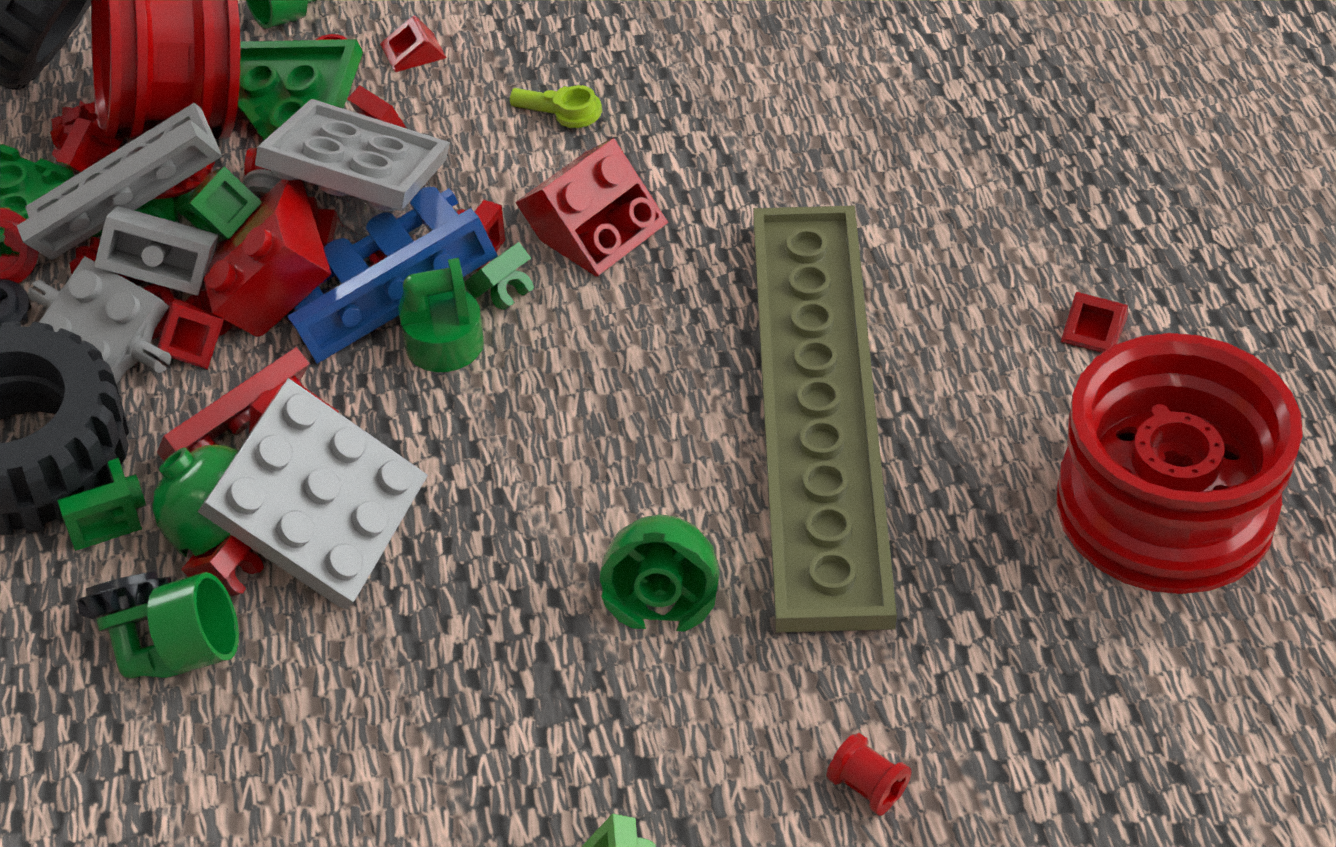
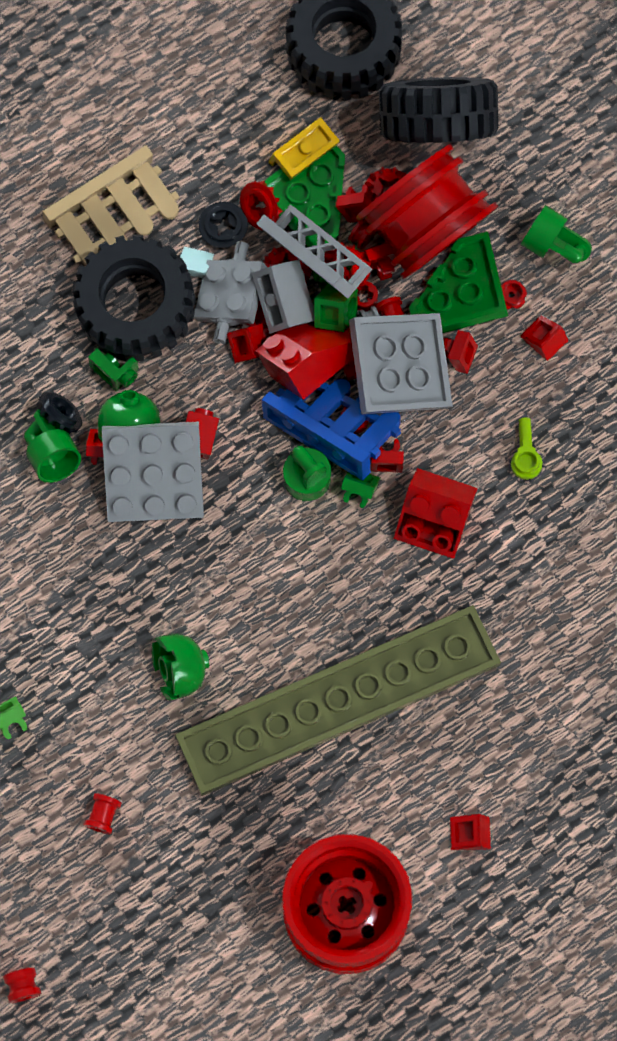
camera: 65 degrees right, 25 degrees up
(233, 408) = (203, 397): red plate -> none

